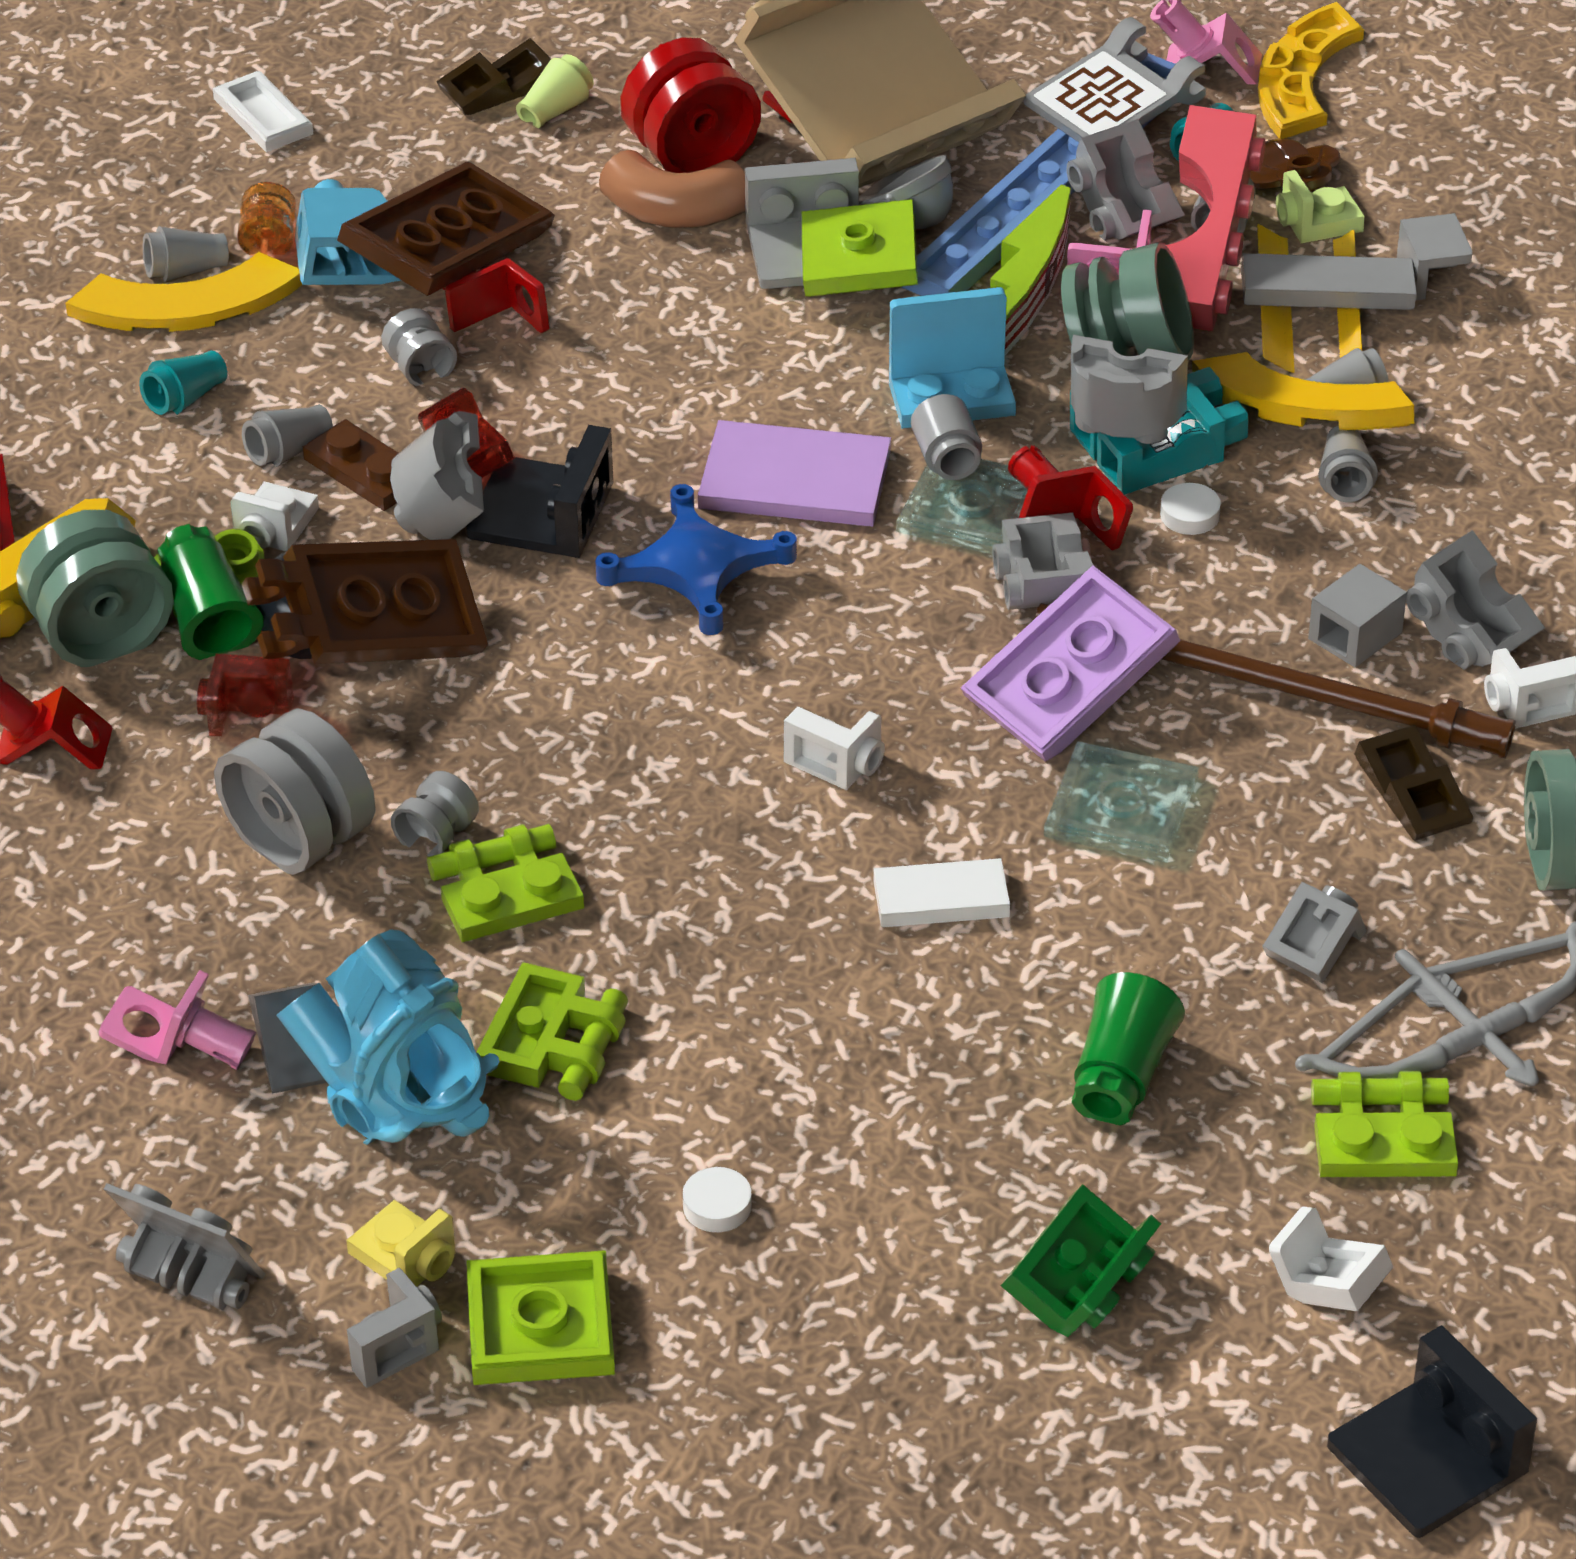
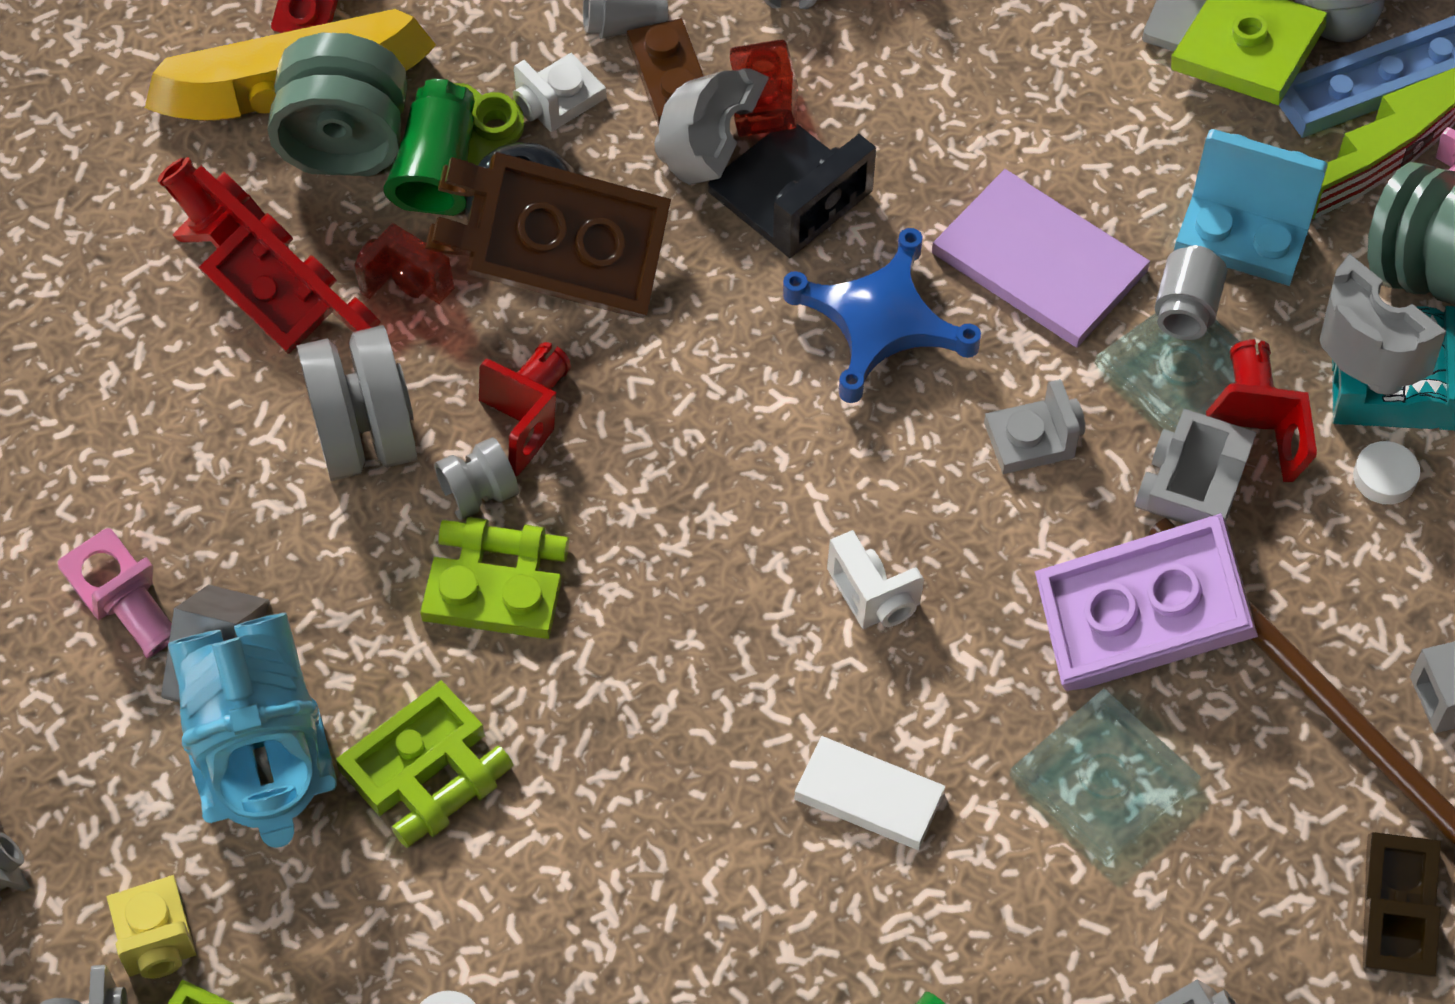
camera: 30 degrees right, 15 degrees up
(128, 735) = (268, 279): none -> red bracket
(425, 738) = (525, 398): none -> red bracket
(890, 591) = (1036, 431): none -> light grey bracket

